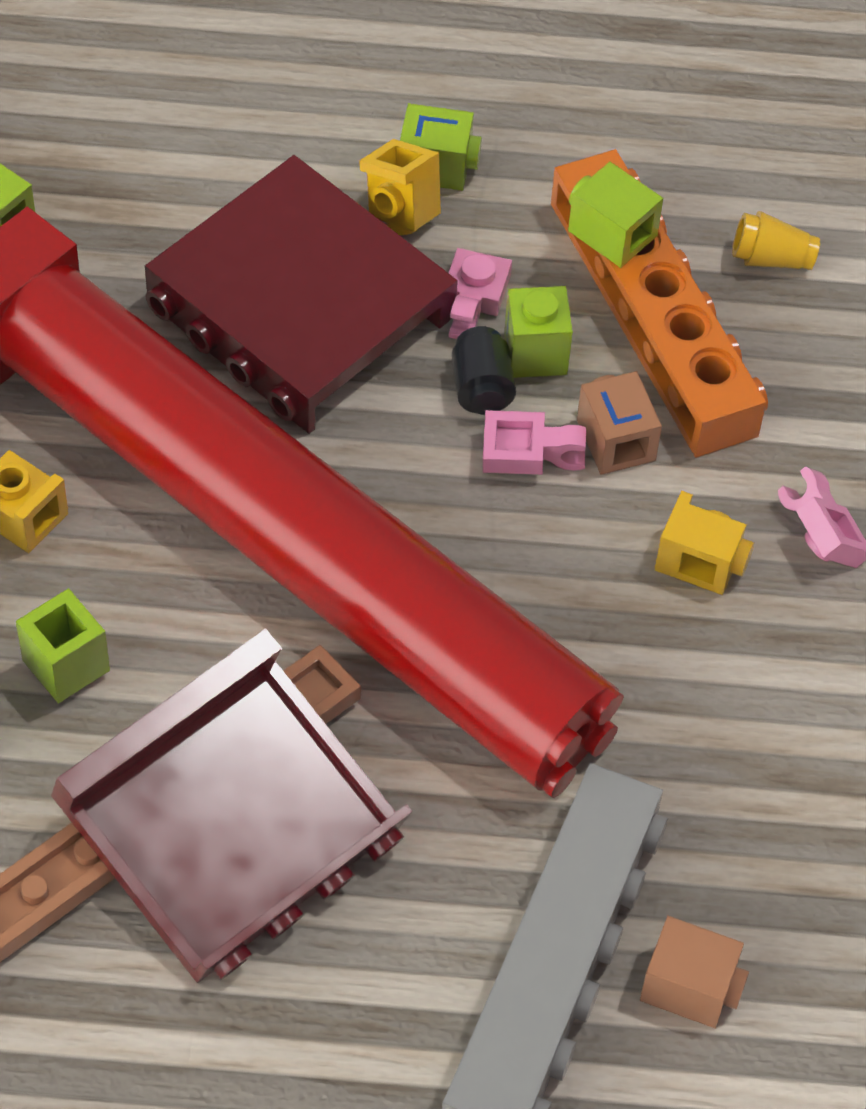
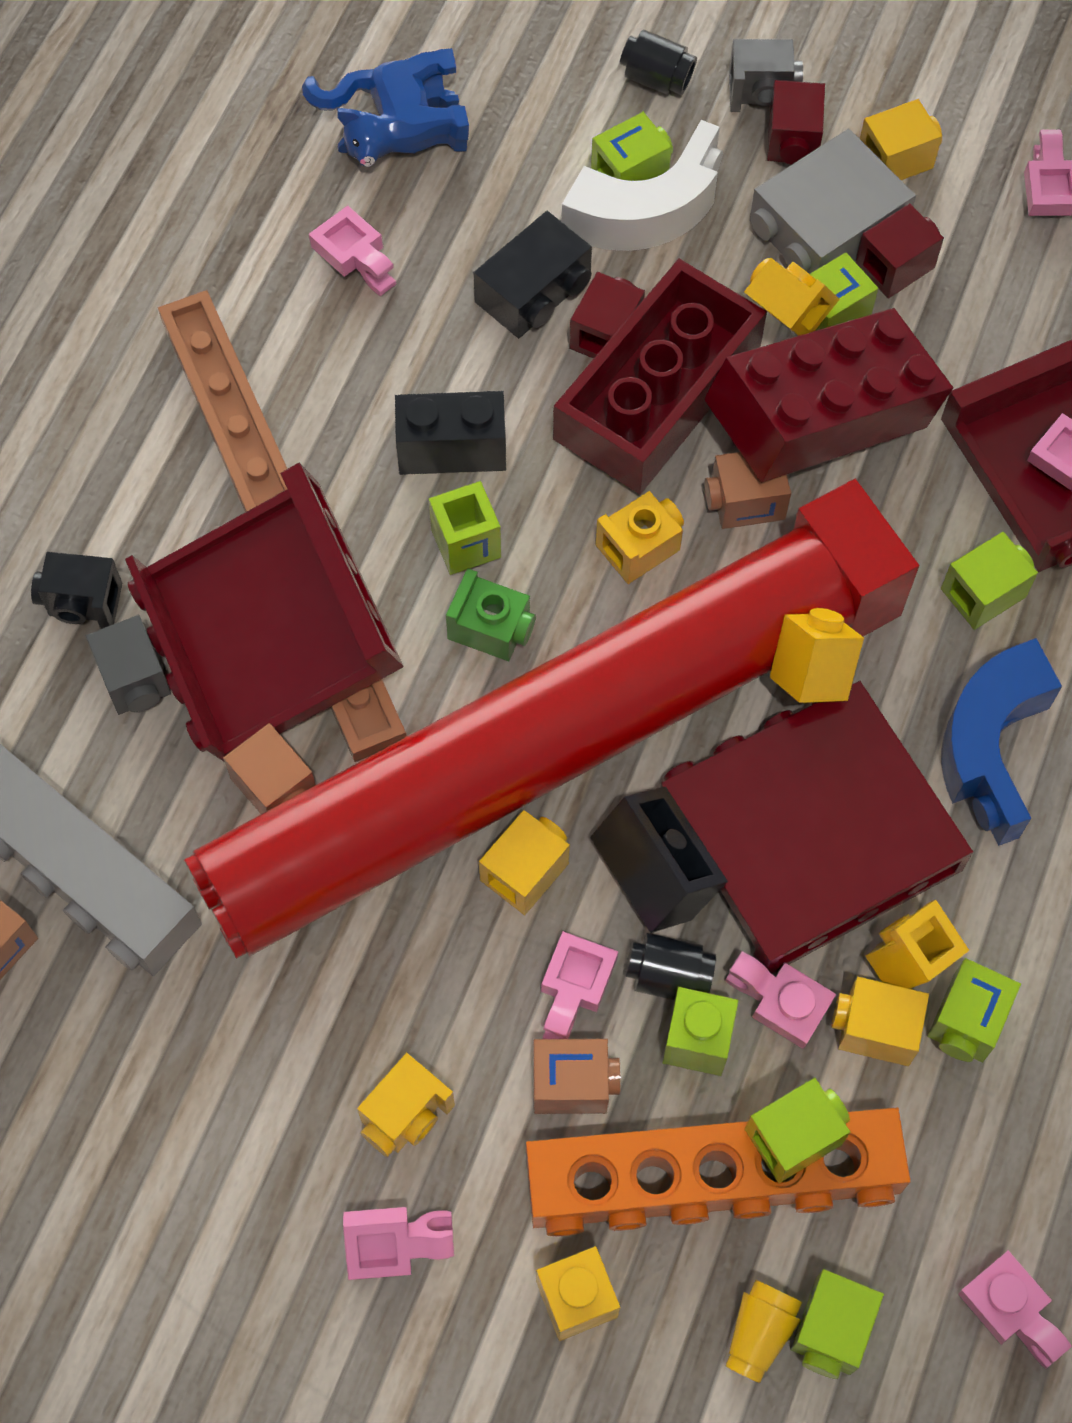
camera: 110 degrees right, 10 degrees up
(144, 283) = (816, 656): none -> yellow brick
(155, 186) = (997, 695): none -> blue arch
(156, 610) = (488, 633): none -> bright green brick
(250, 1026) = (78, 588): none -> black brick
(328, 940) = (128, 665): none -> dark grey brick
(386, 390) = (658, 859): none -> black brick
(411, 756) = (268, 770): none -> nougat brick
(426, 501) = (525, 861): none -> yellow brick
(472, 206) = (880, 1020): none -> yellow brick
(676, 95) = (1010, 1304): none -> bright pink plate
(747, 185) = (836, 1325): none -> lime brick
(809, 369) = (577, 1293): none -> yellow brick

